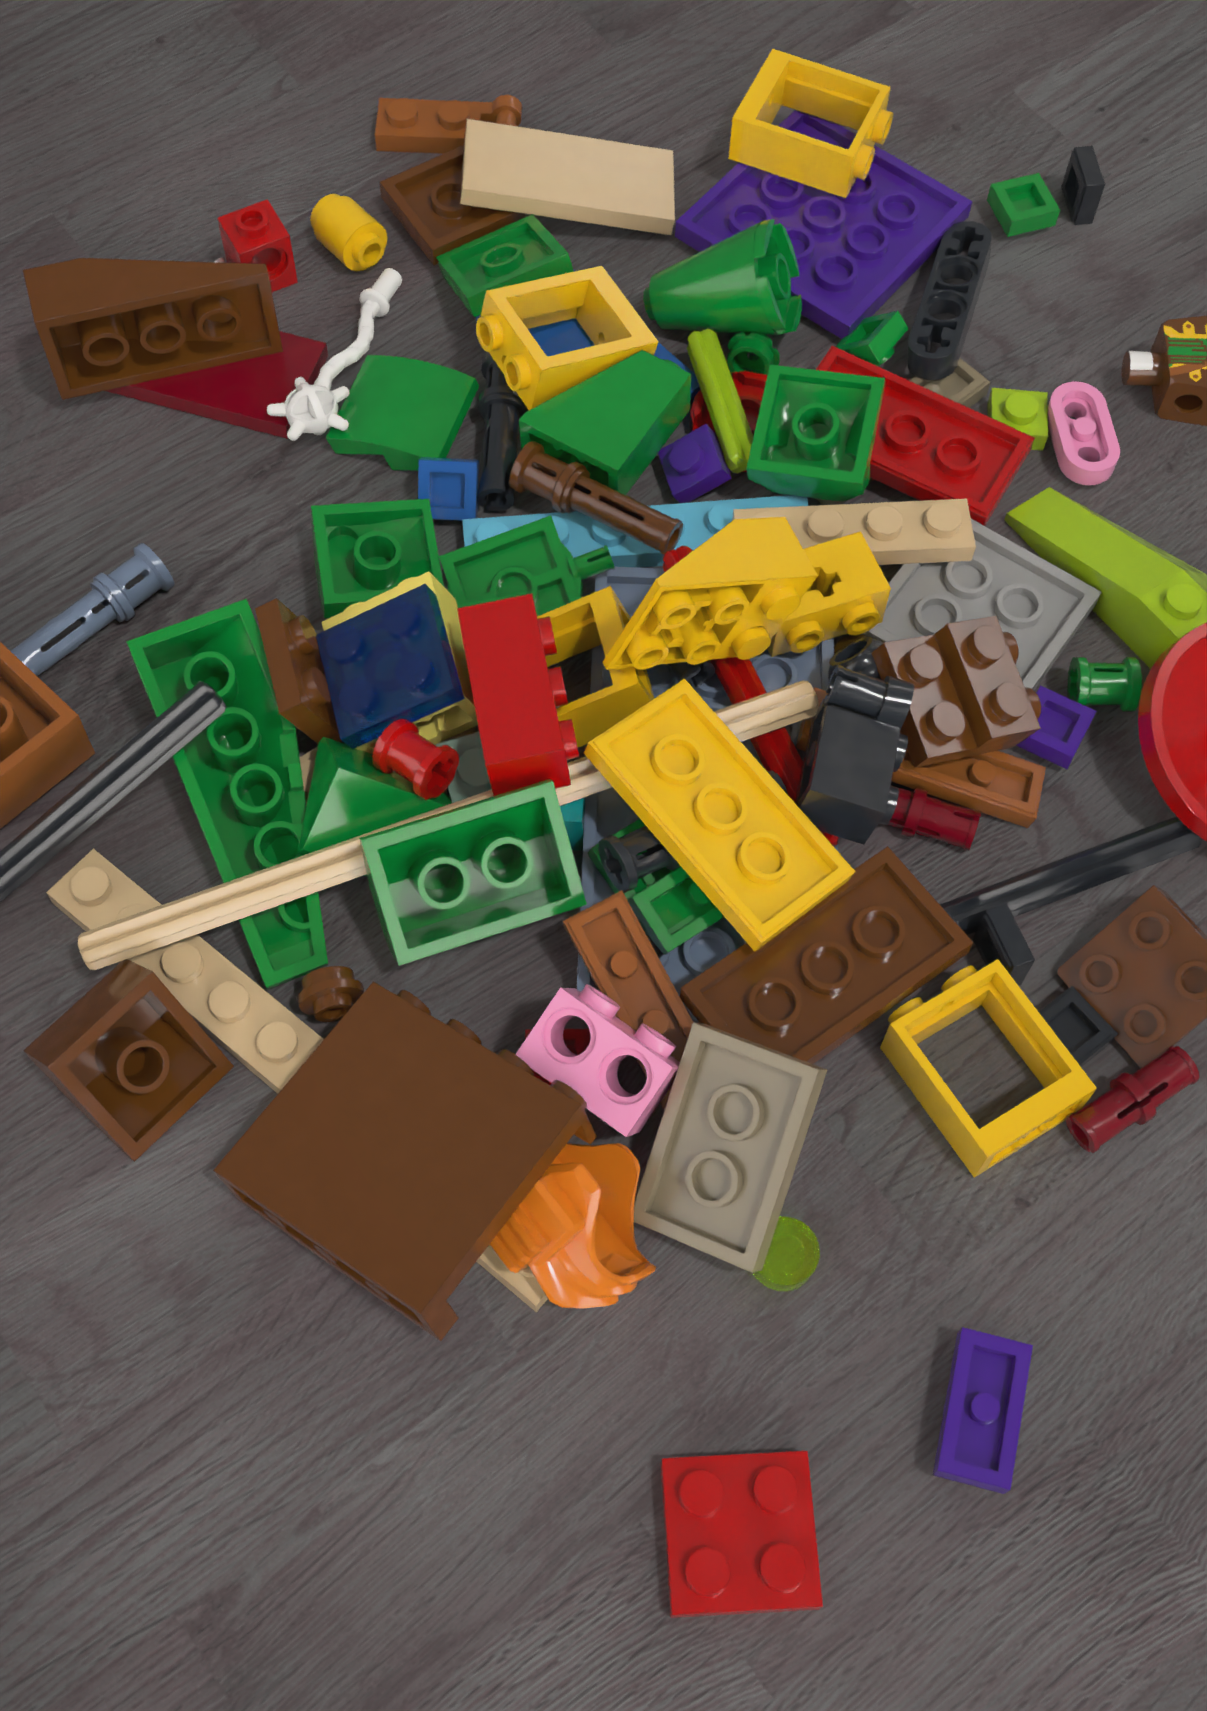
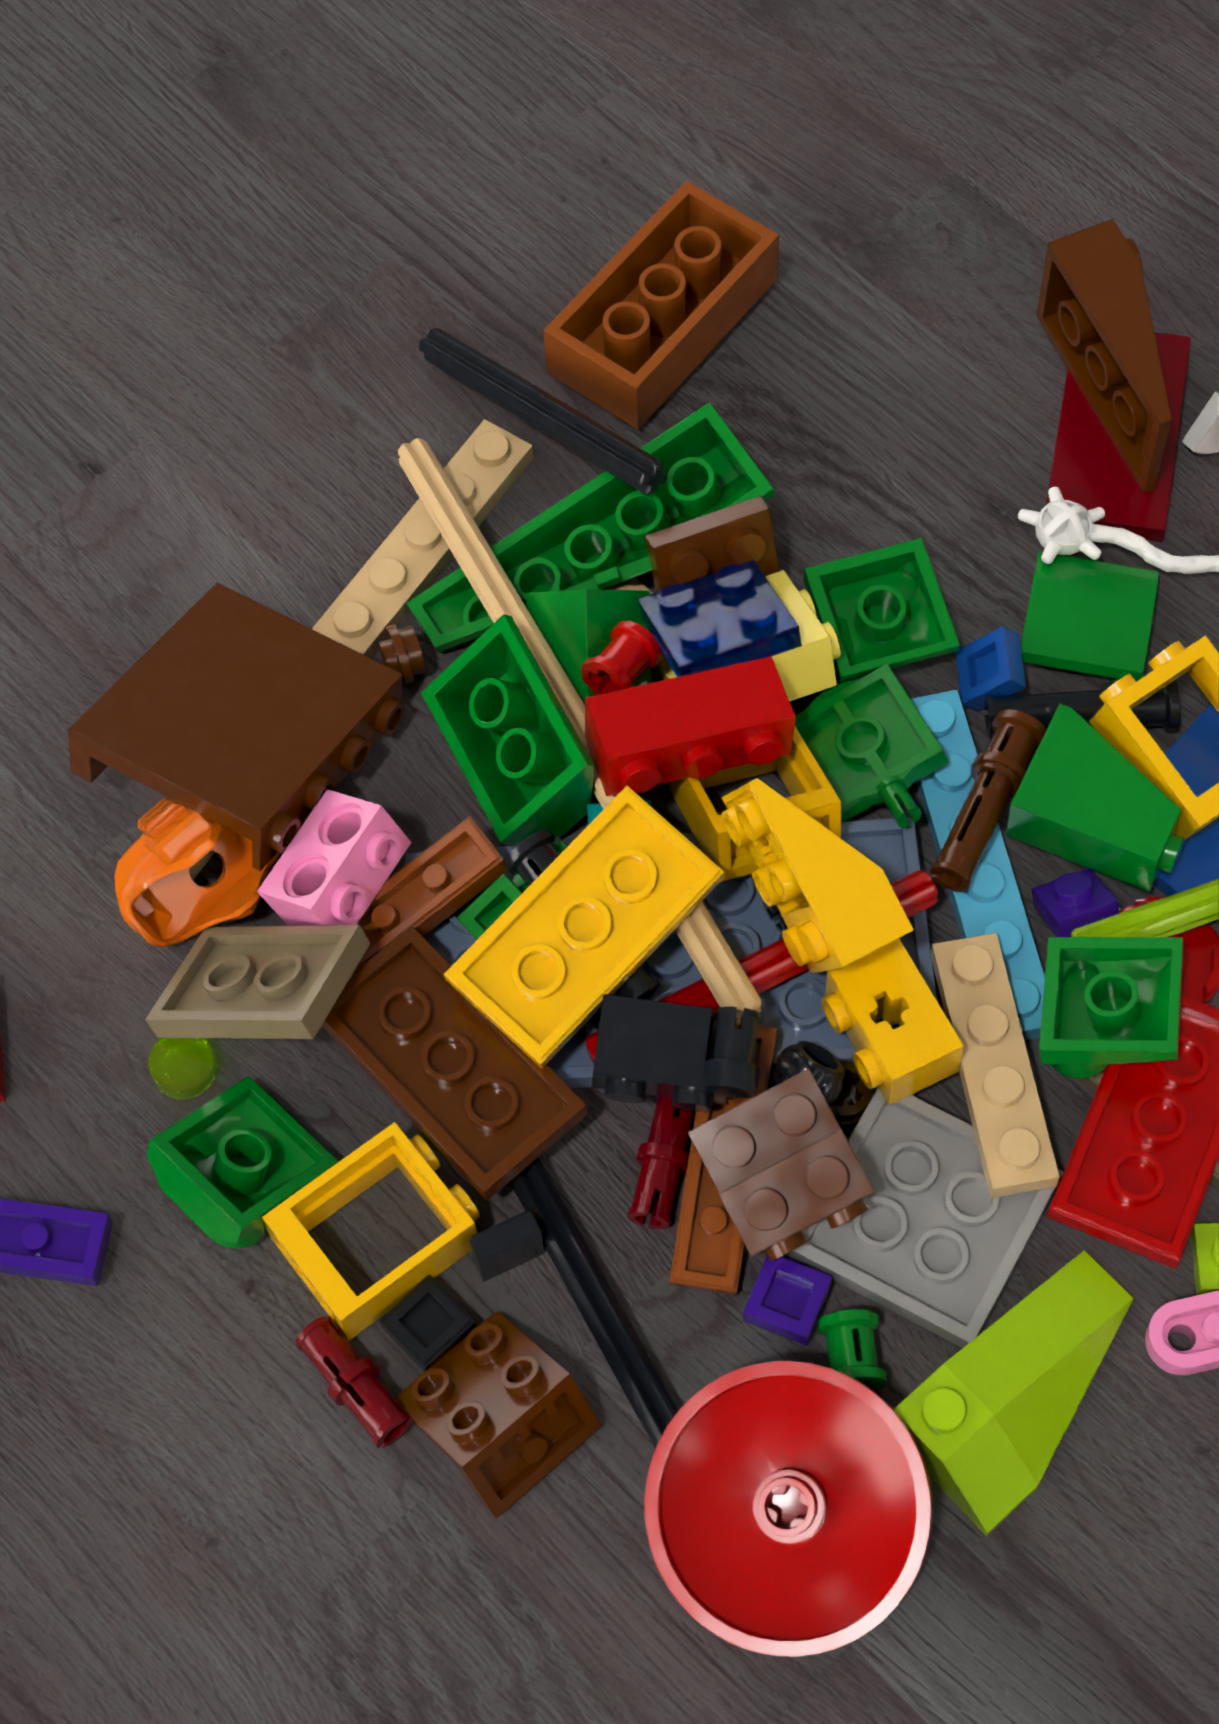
camera: 90 degrees right, 0 degrees up
(117, 605) = (801, 410): sand blue pin -> none
(130, 1057) = (326, 508): reddish brown slope -> none
(913, 1190) = (235, 1163): none -> green slope

